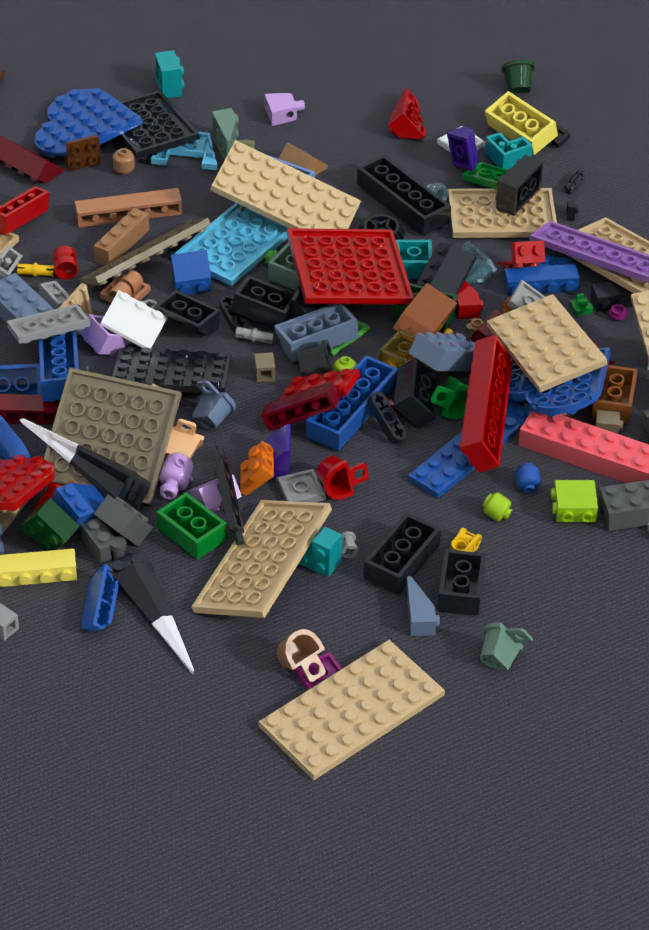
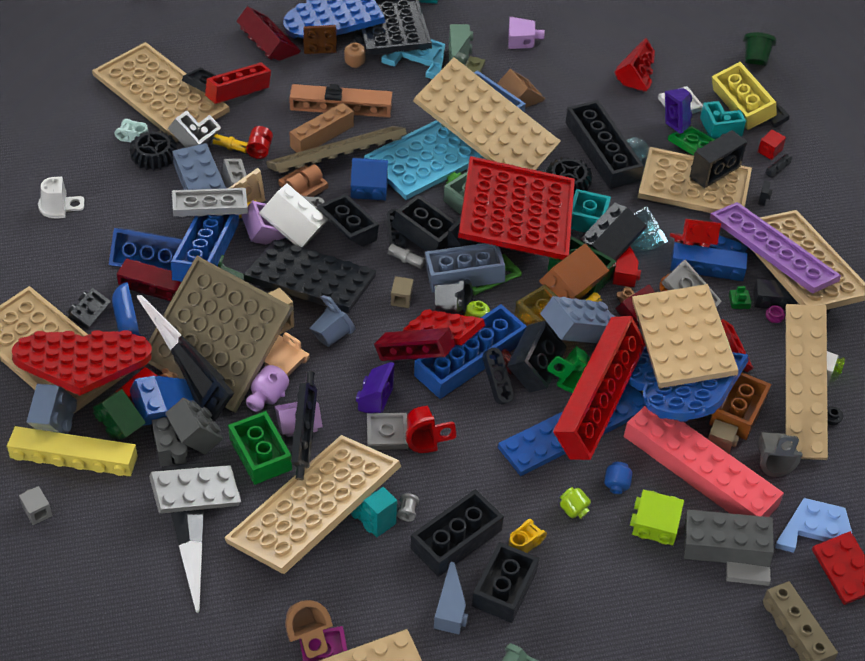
camera: 15 degrees right, 5 degrees up
(100, 600) = (135, 512): blue brick -> none
(121, 200) = (333, 92): none -> black plate
(148, 571) = (194, 489): none -> light grey plate
(257, 468) = (348, 400): orange plate -> none
(562, 163) = (771, 144): none -> red brick

